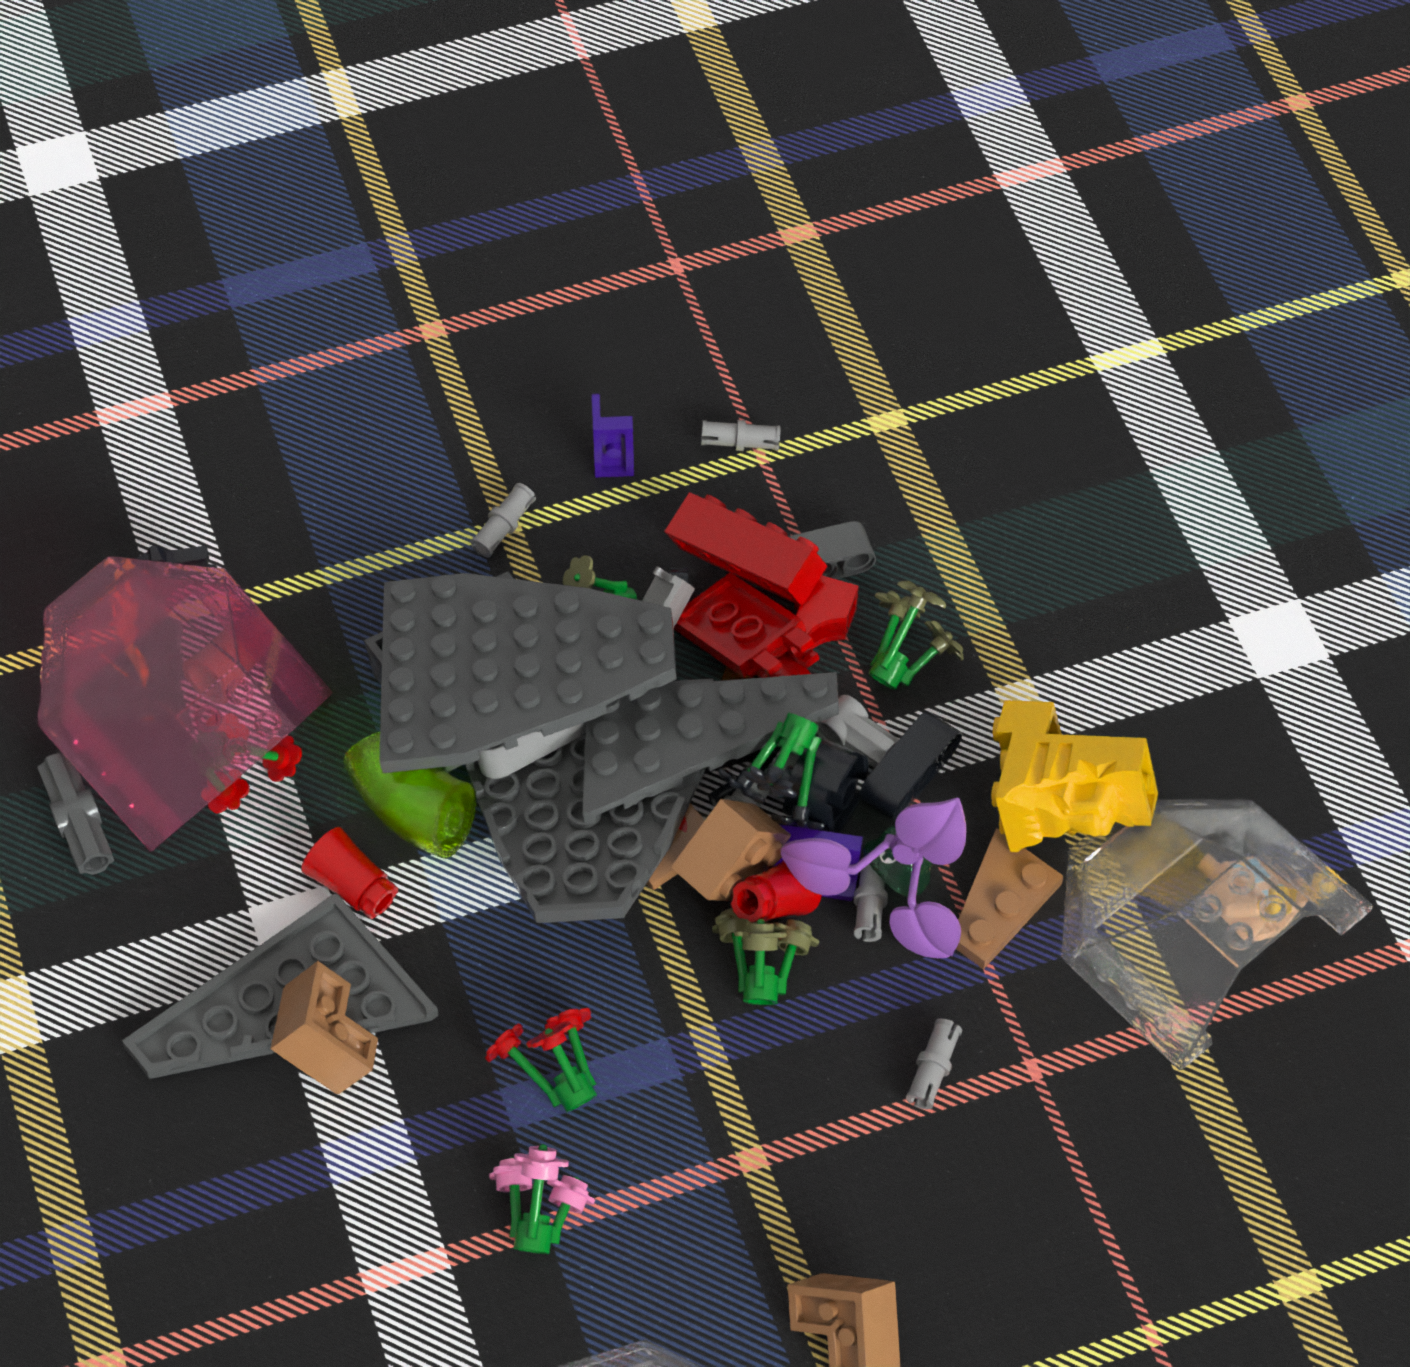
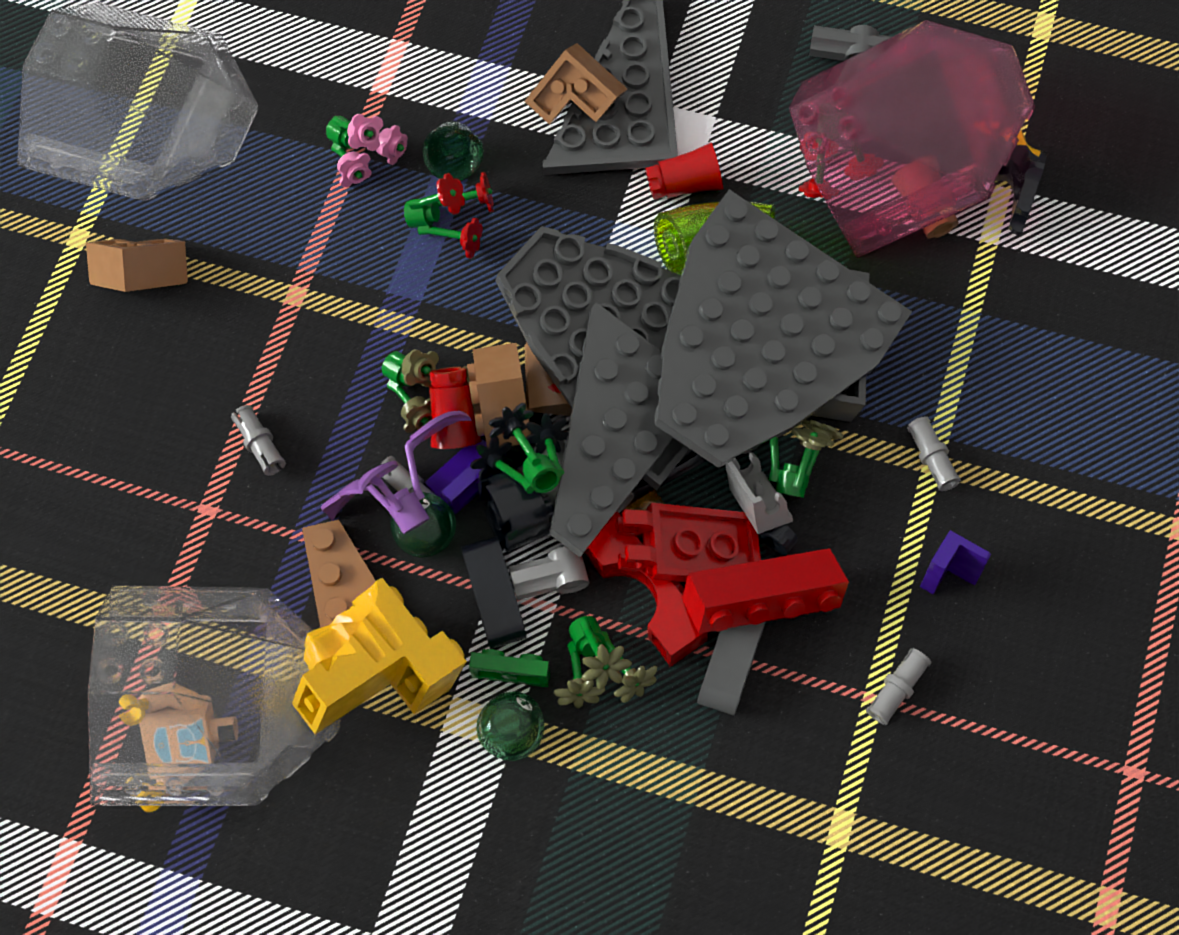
camera: 130 degrees right, 10 degrees up
(478, 1108) = (452, 150): none -> clear green helmet
(972, 714) = (495, 666): none -> green plate
(1010, 676) = (510, 726): none -> clear green helmet

